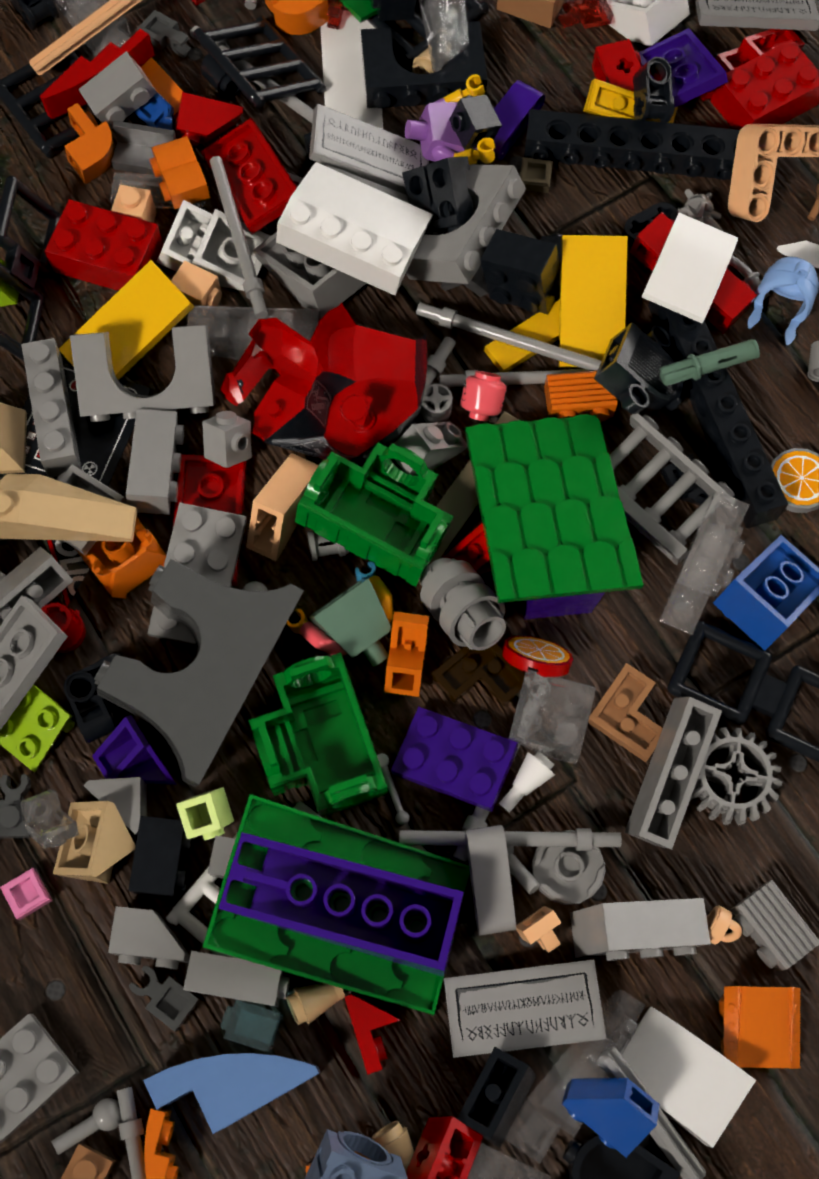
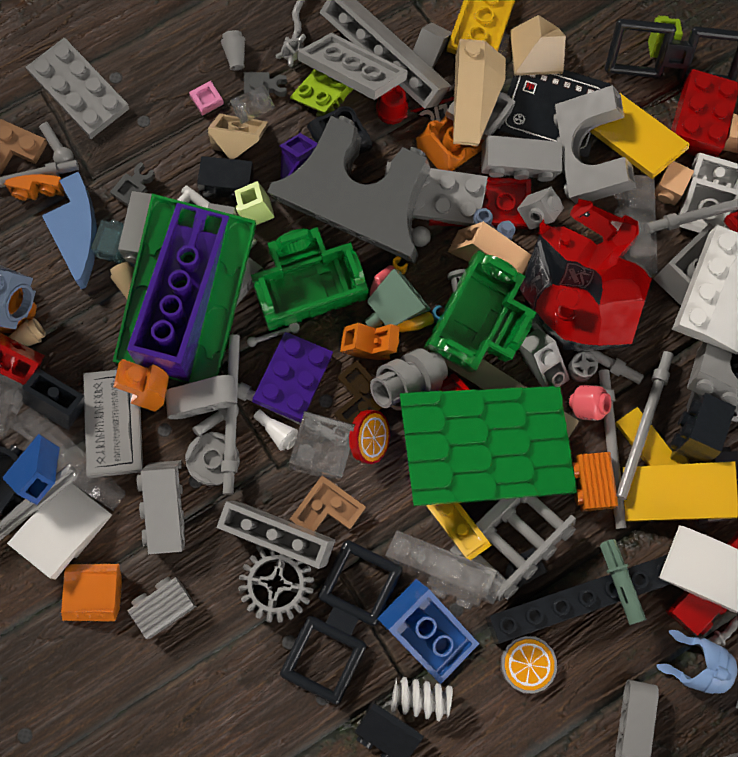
camera: 85 degrees right, 5 degrees up
(50, 406) = (560, 85): light grey brick -> none
(127, 795) = (266, 152): light grey slope -> none
(147, 936) = (173, 169): light grey slope -> none
(240, 505) = (505, 228): none -> sand blue plant
(364, 1020) = (109, 313): red slope -> none
(477, 960) = (145, 384): none -> orange brick
(539, 928) = (167, 434): light nougat tile -> none
(633, 369) = (618, 519): black piece -> none
(659, 540) = (460, 529): none -> yellow tile
(718, 923) = (163, 566): light nougat tile -> none

